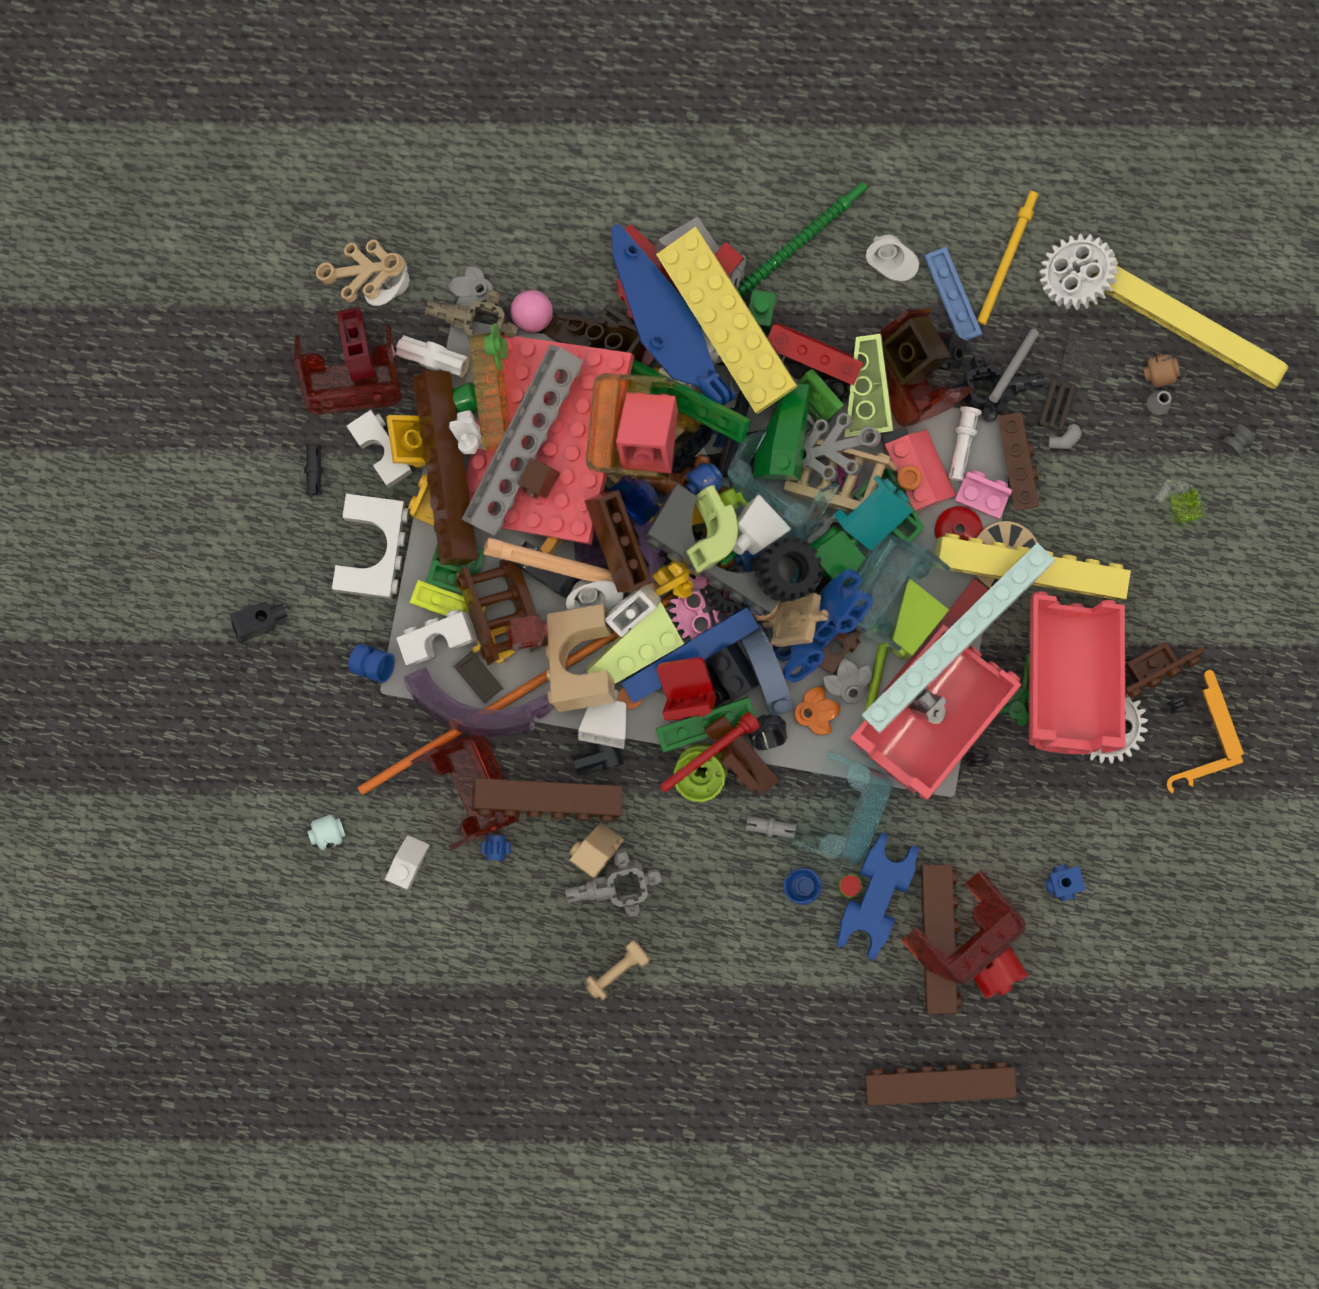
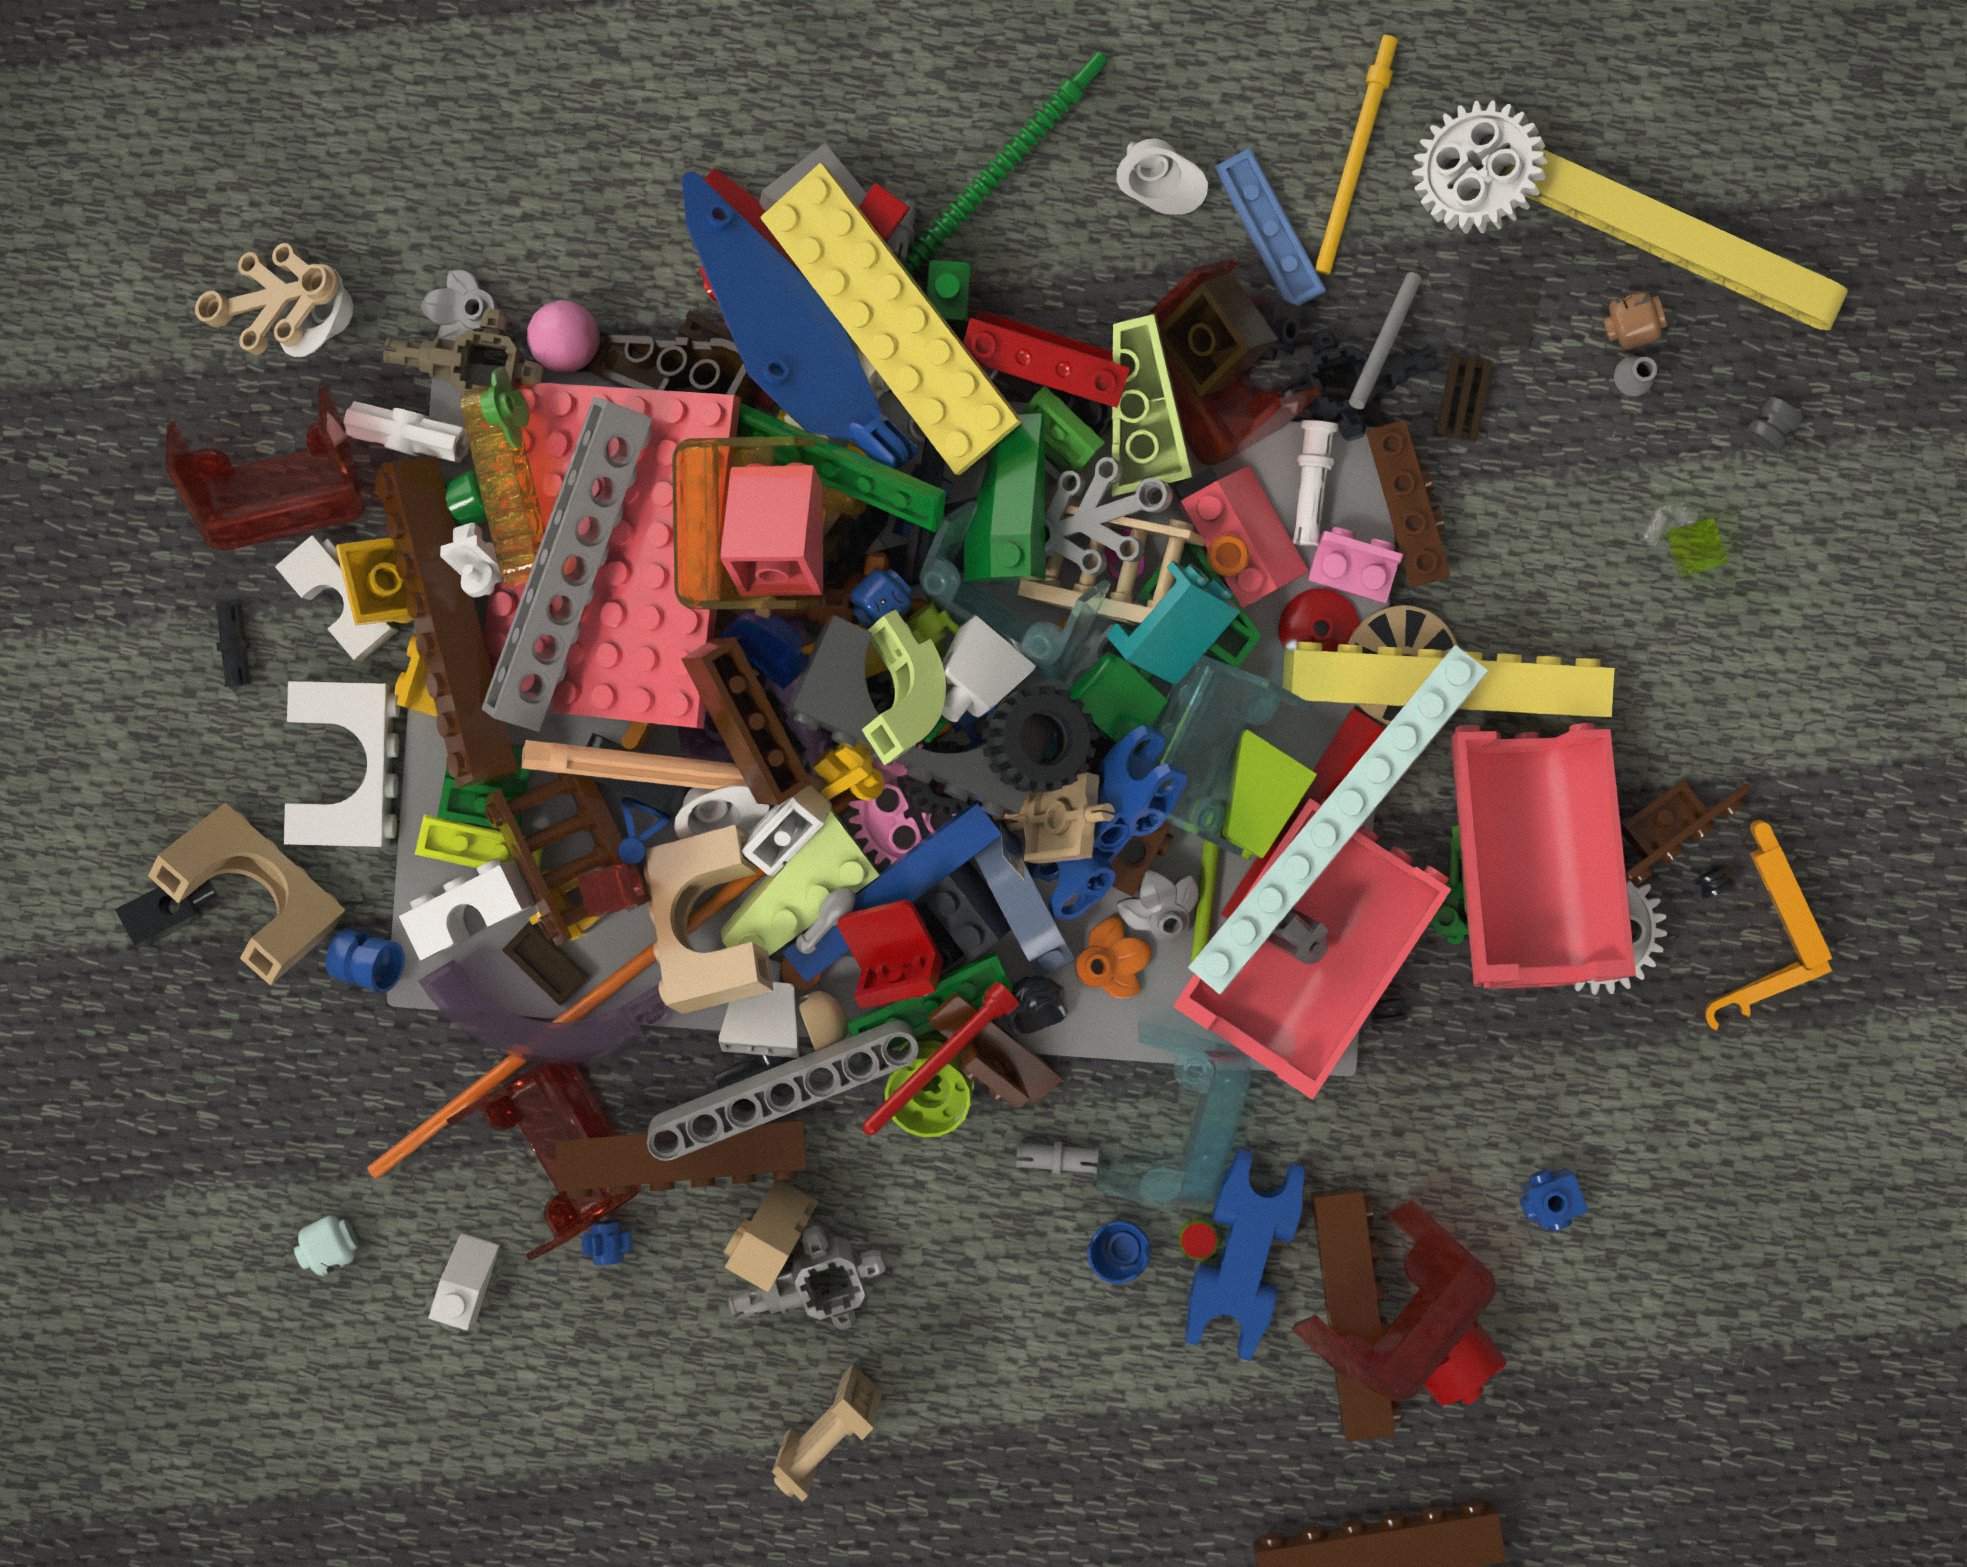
camera: 10 degrees left, 5 degrees up
(300, 587) = (231, 845): none -> tan arch
(355, 344) = (275, 425): dark red slope -> none
(538, 479) = (600, 628): reddish brown brick -> none
(540, 609) = (632, 847): none -> blue piece
(604, 771) = (768, 1105): none -> light grey beam
(642, 727) = (823, 1019): none -> tan hair
(654, 659) = (830, 911): none -> light grey piece
(1067, 440) = (1487, 456): light grey arm -> none

